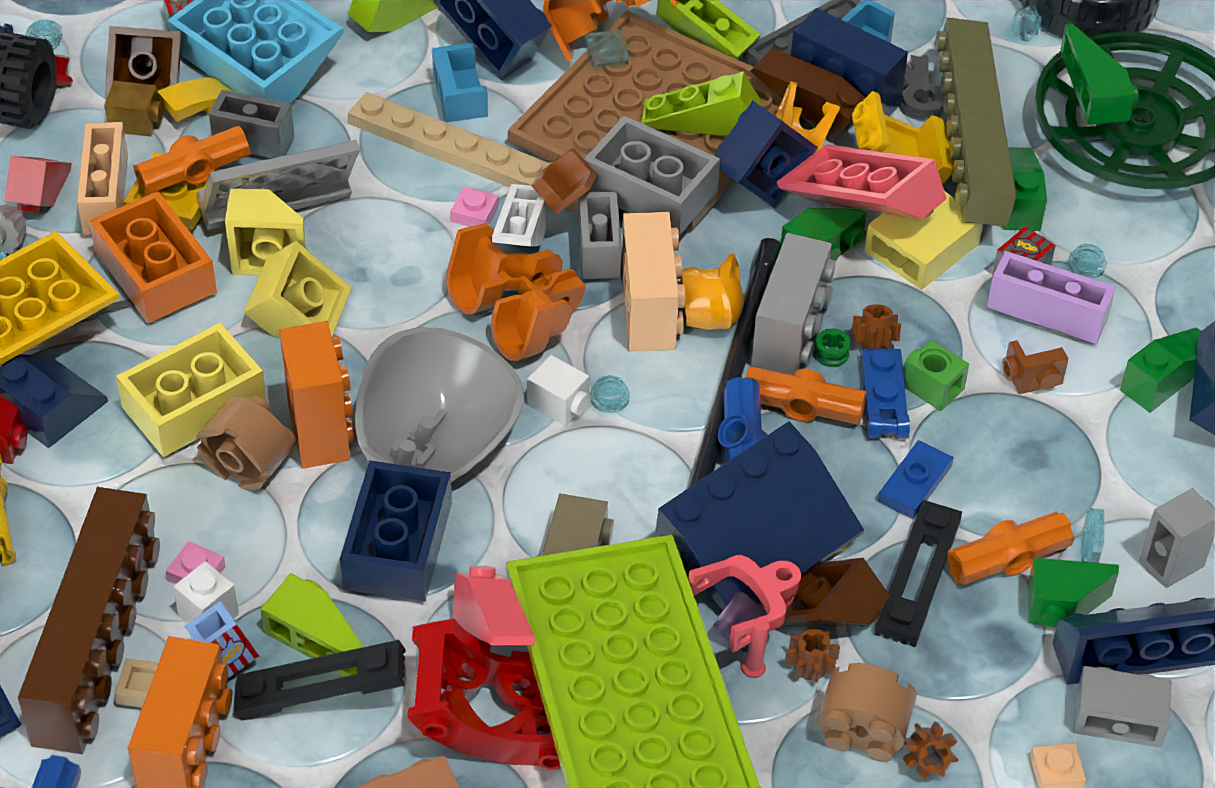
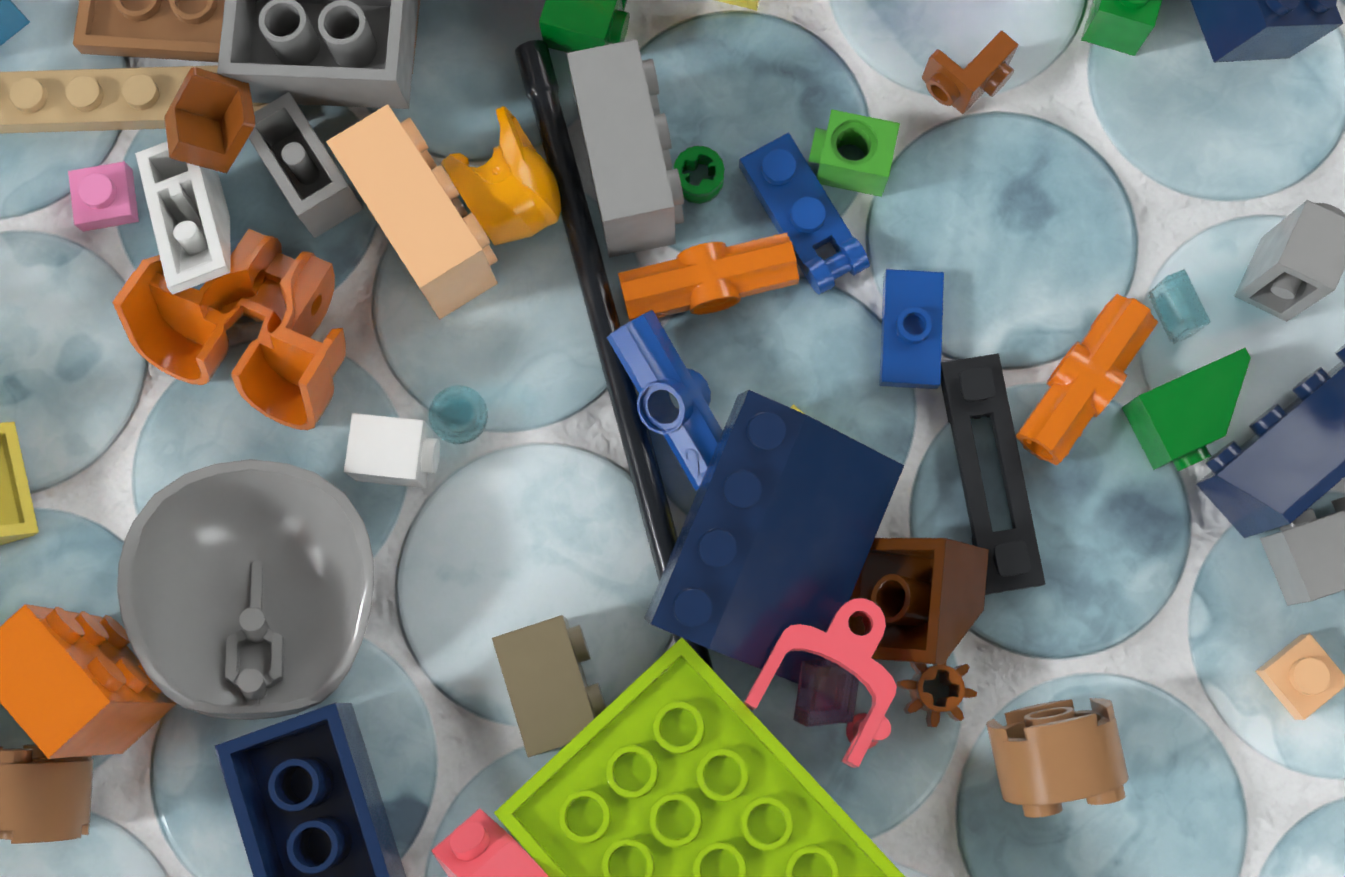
camera: 25 degrees left, 30 degrees up
(876, 327) = (743, 119): dark orange gear -> none
(941, 744) = (1156, 754): dark orange gear -> none

